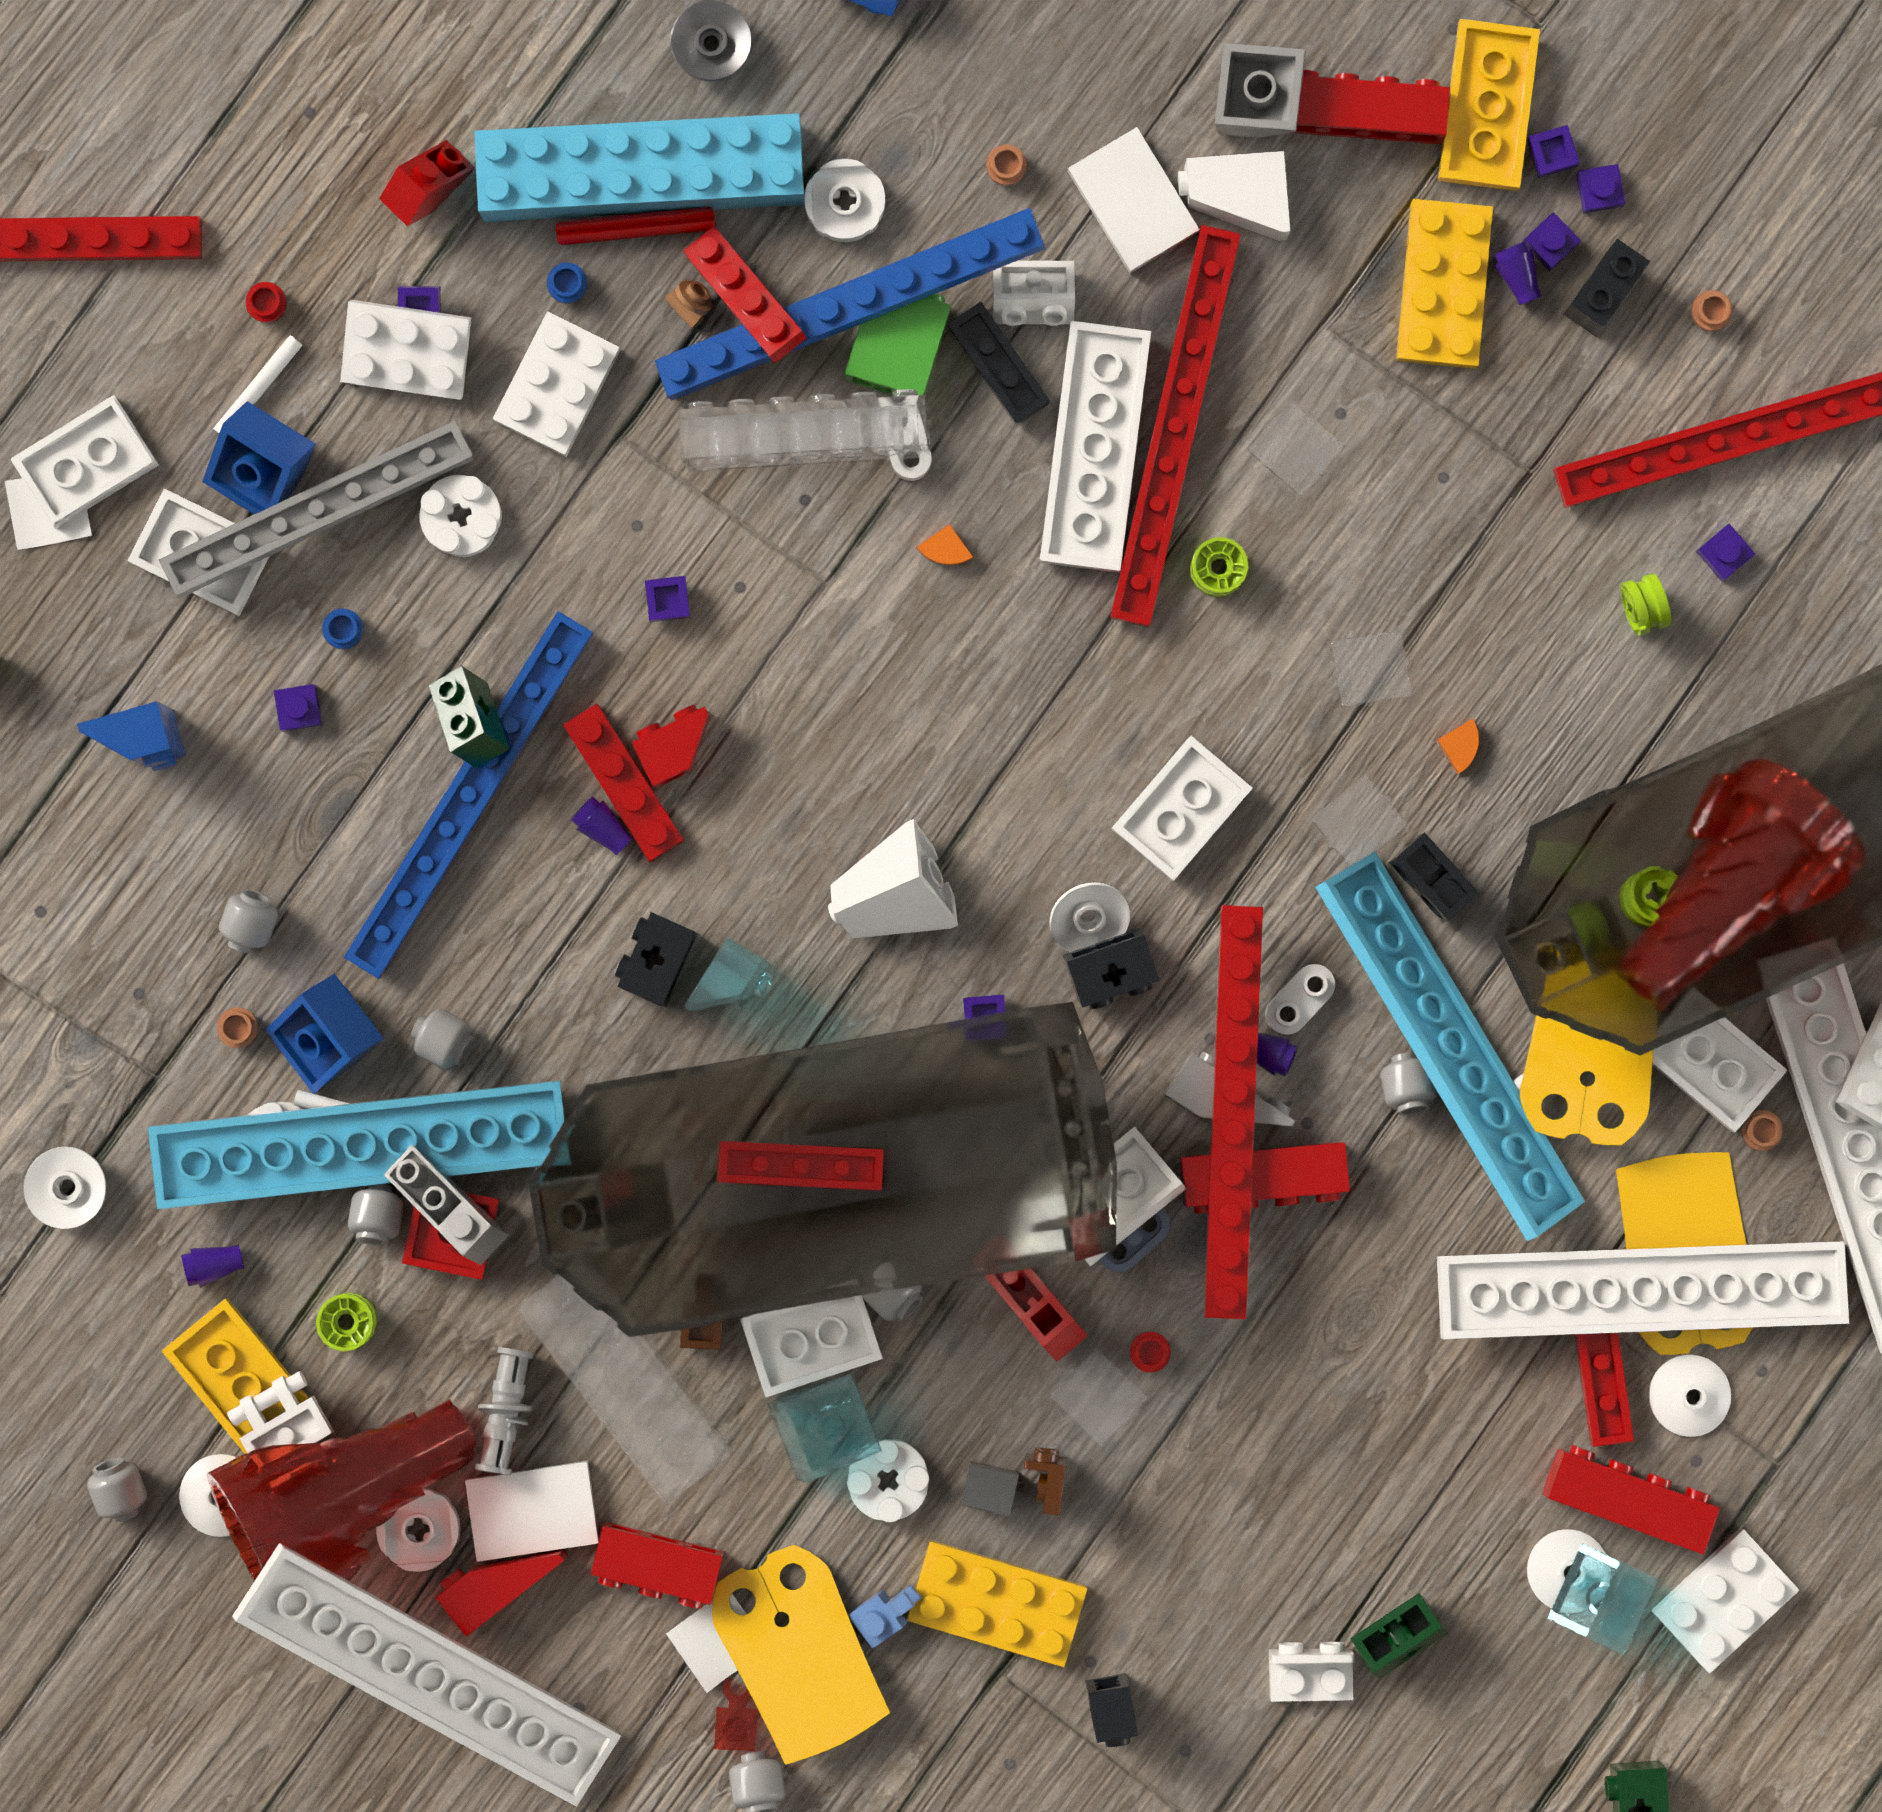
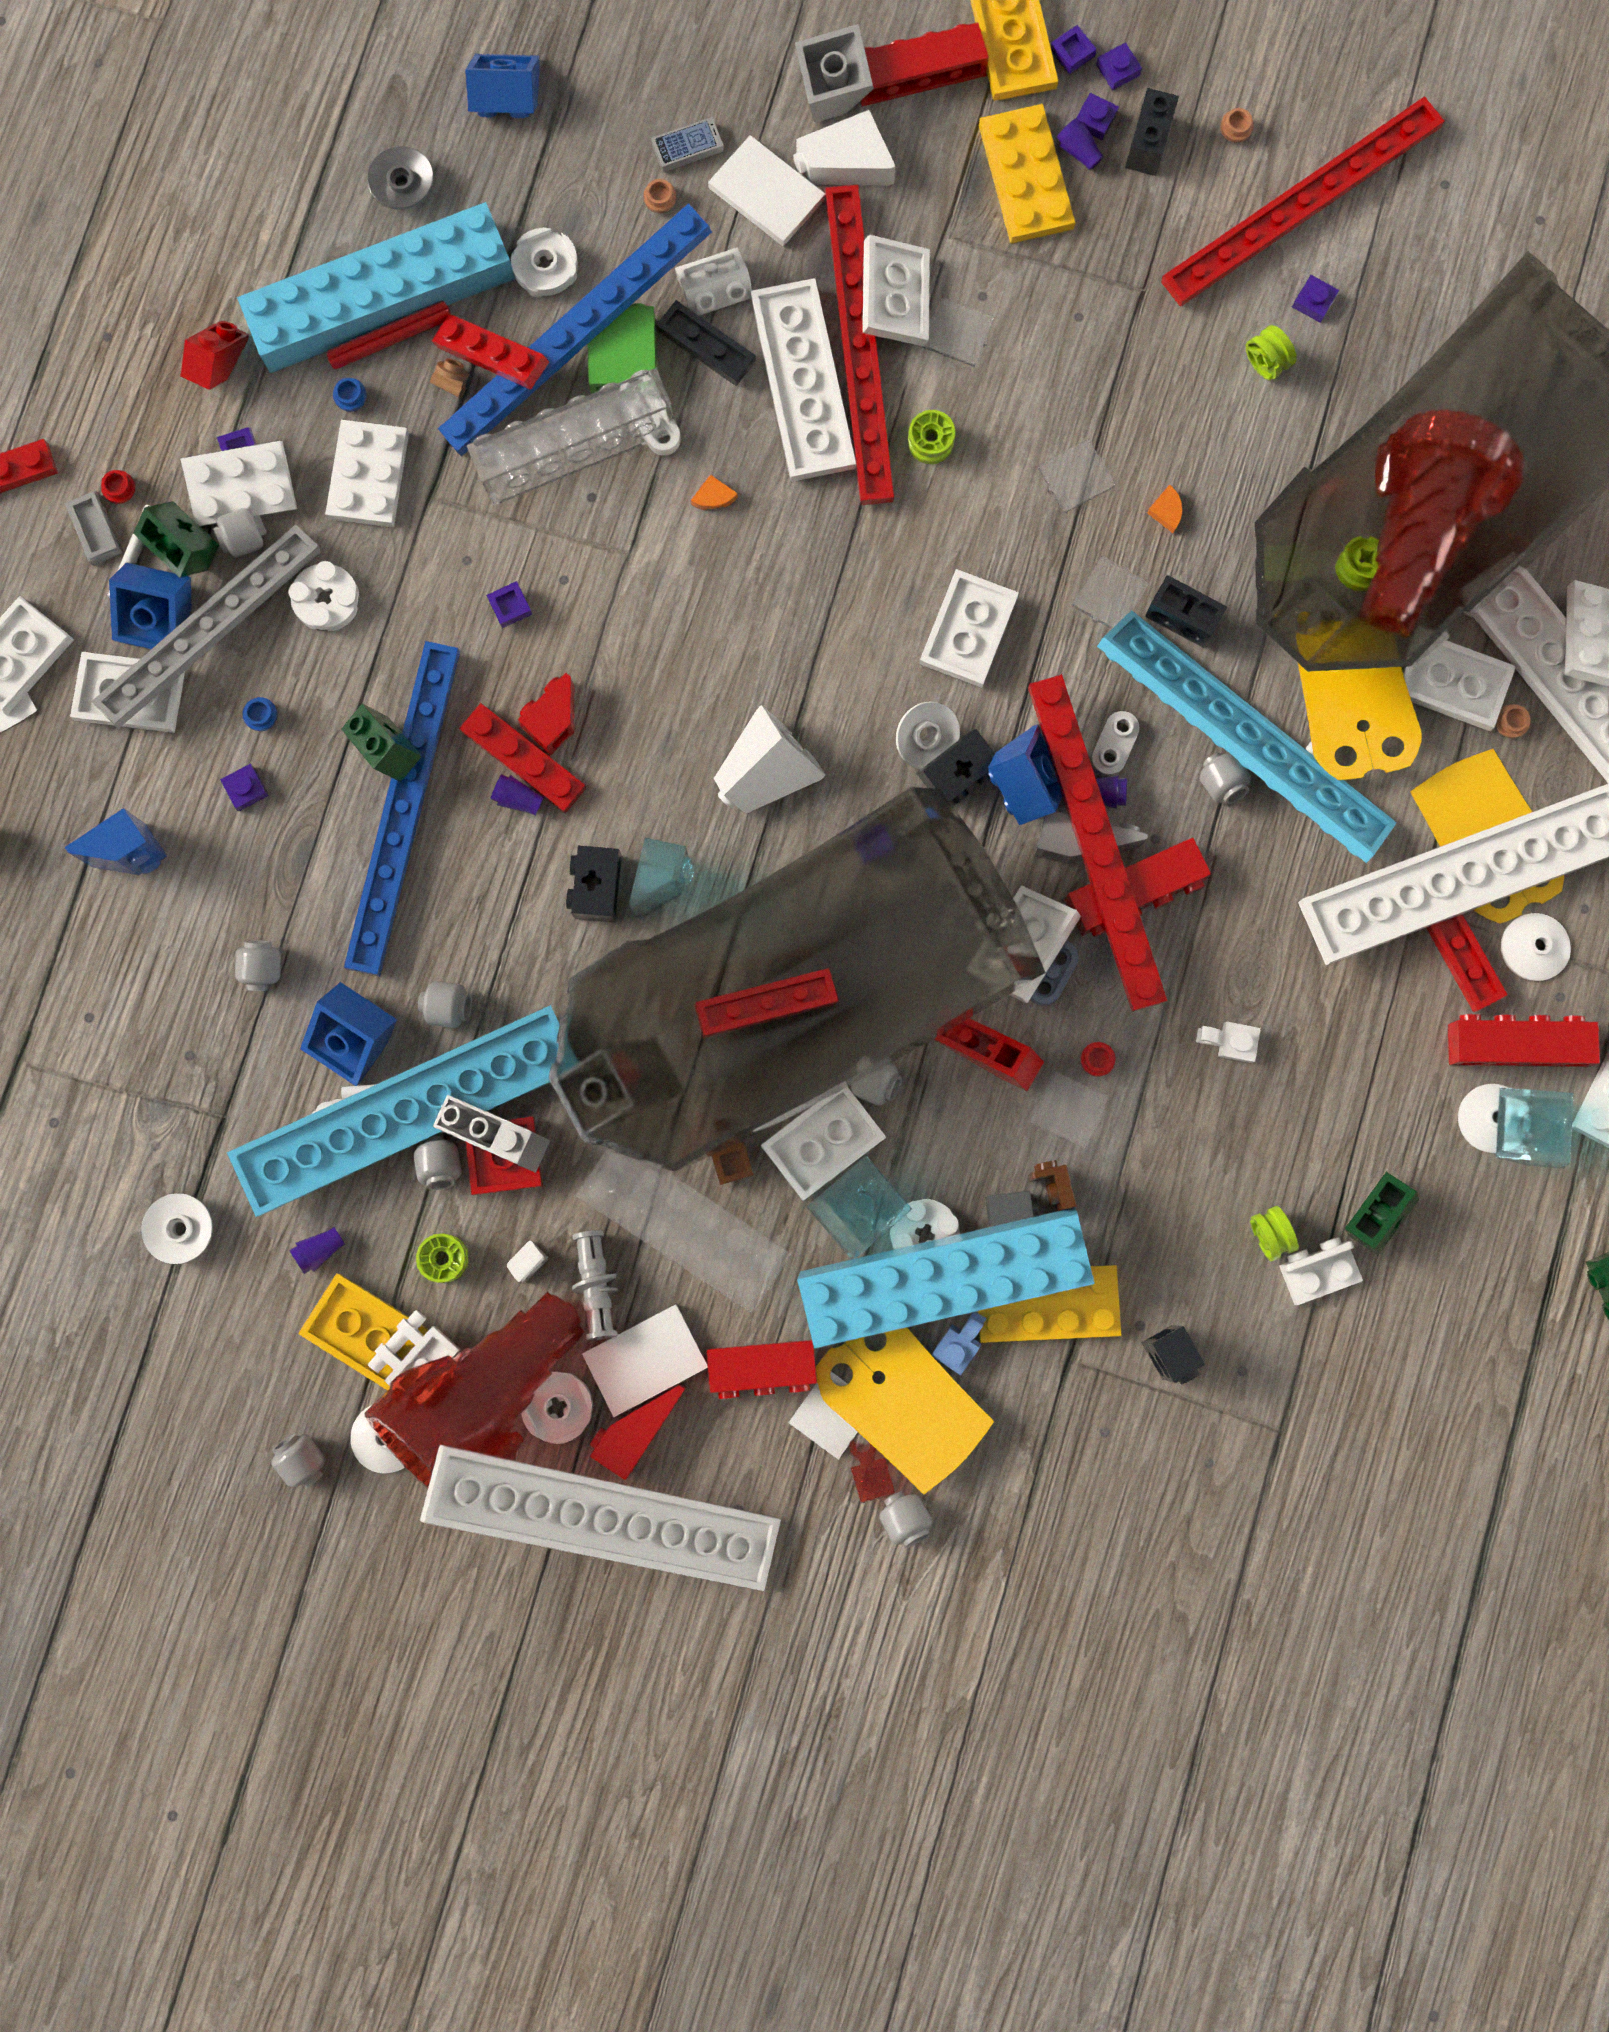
camera: 15 degrees left, 5 degrees down
(223, 341) = (94, 528): none -> light grey tile
(237, 1027) = (277, 1053): nougat plate -> none
(313, 394) = (176, 539): none -> dark green brick
(388, 409) = (240, 532): none -> light grey head
(437, 1357) = (526, 1262): none -> white slope
(890, 1539) = (945, 1277): none -> medium azure brick
(1060, 111) = (687, 144): none -> tile
(1182, 1009) = (1026, 777): none -> blue slope
(1239, 380) = (896, 290): none -> white plate
(1272, 1615) = (1274, 1233): none -> lime wheel
(1310, 1385) = (1234, 1041): none -> white plate

